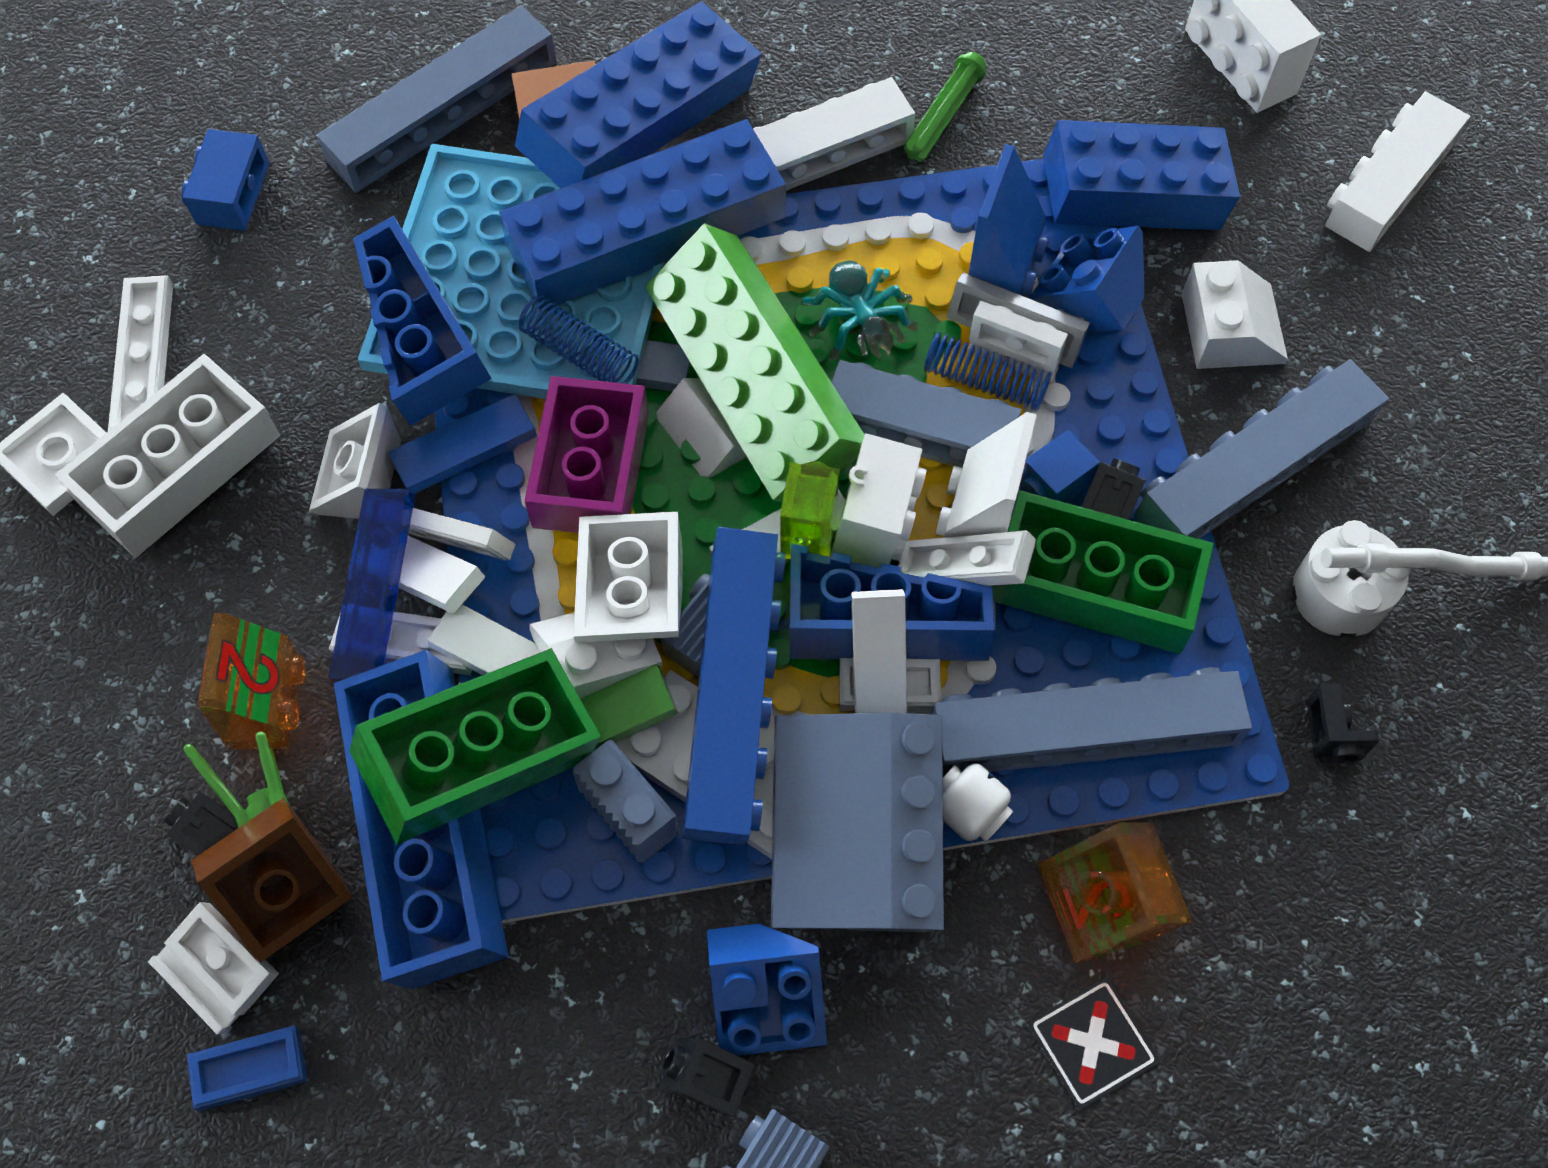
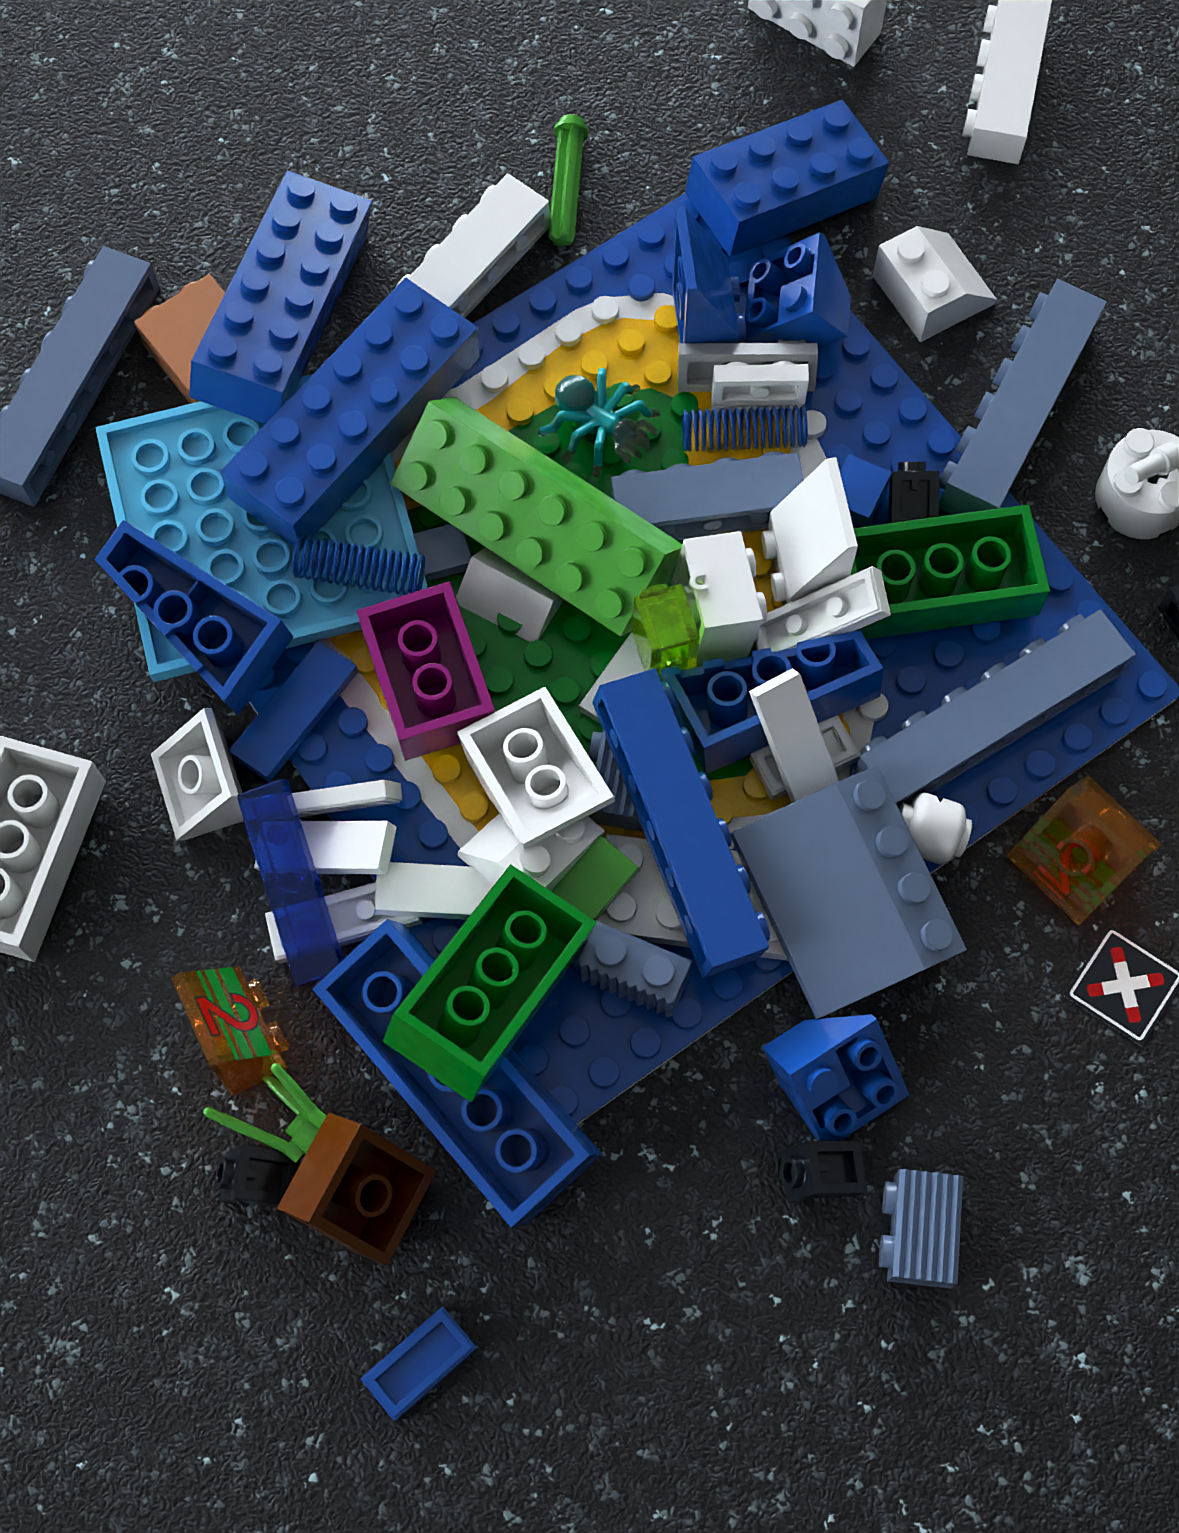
camera: 25 degrees left, 5 degrees up
(212, 968) = (339, 1293): white plate -> none

